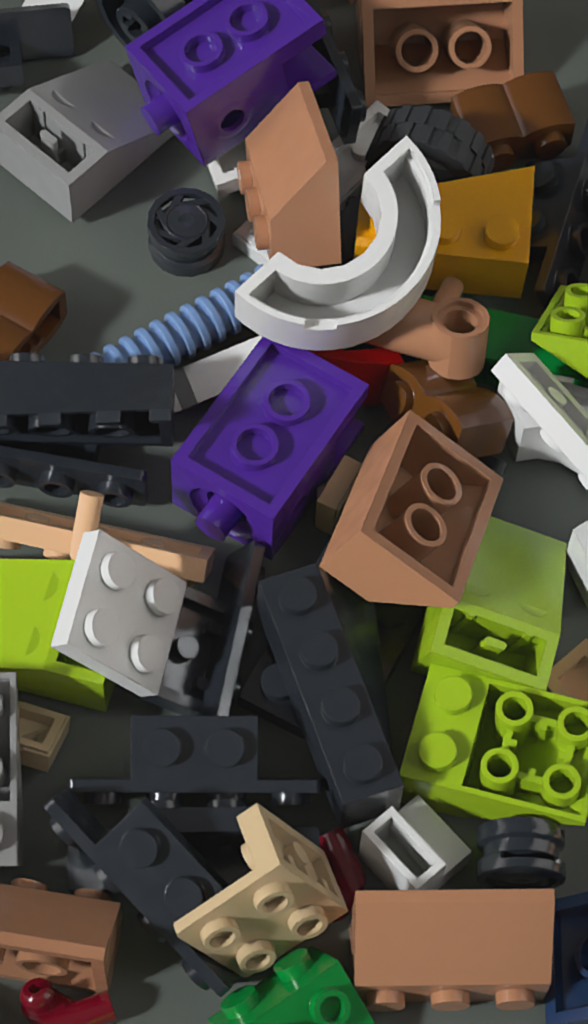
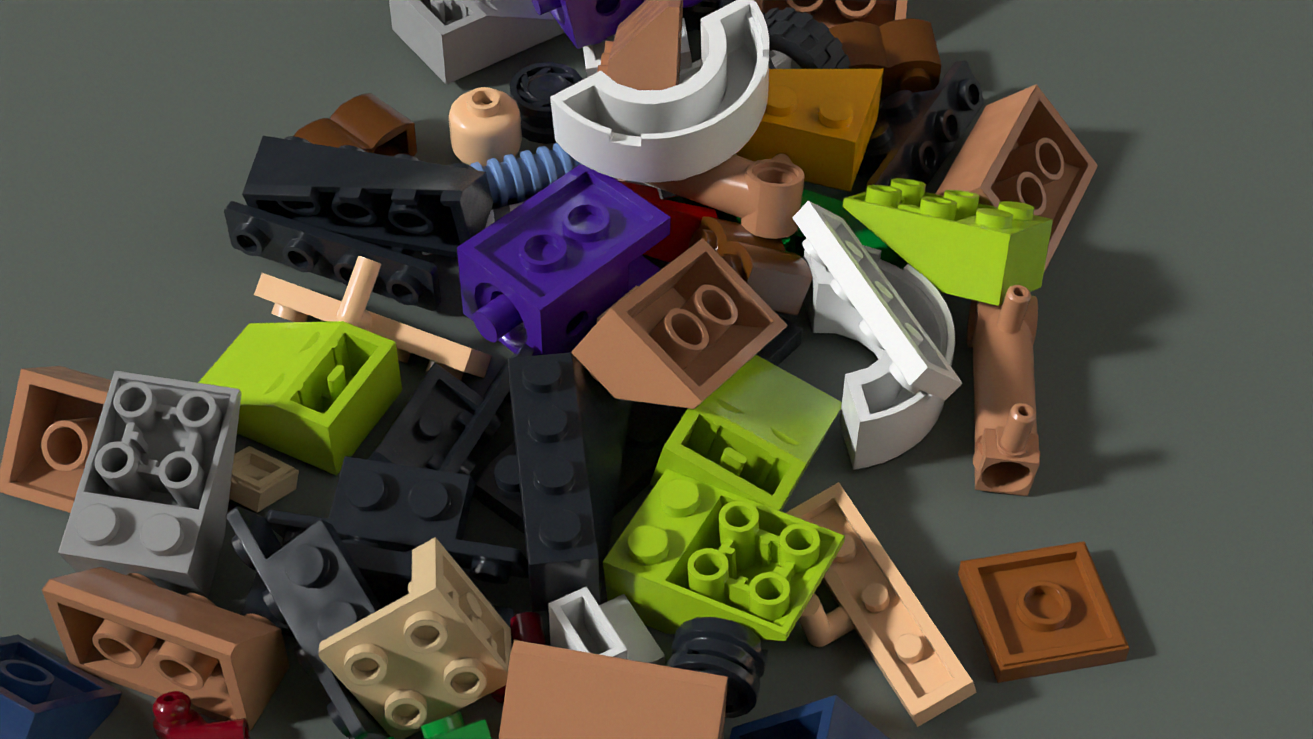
camera: 15 degrees right, 15 degrees down
(119, 614) = (362, 365): white plate -> none
(136, 281) = (484, 126): none -> light nougat head

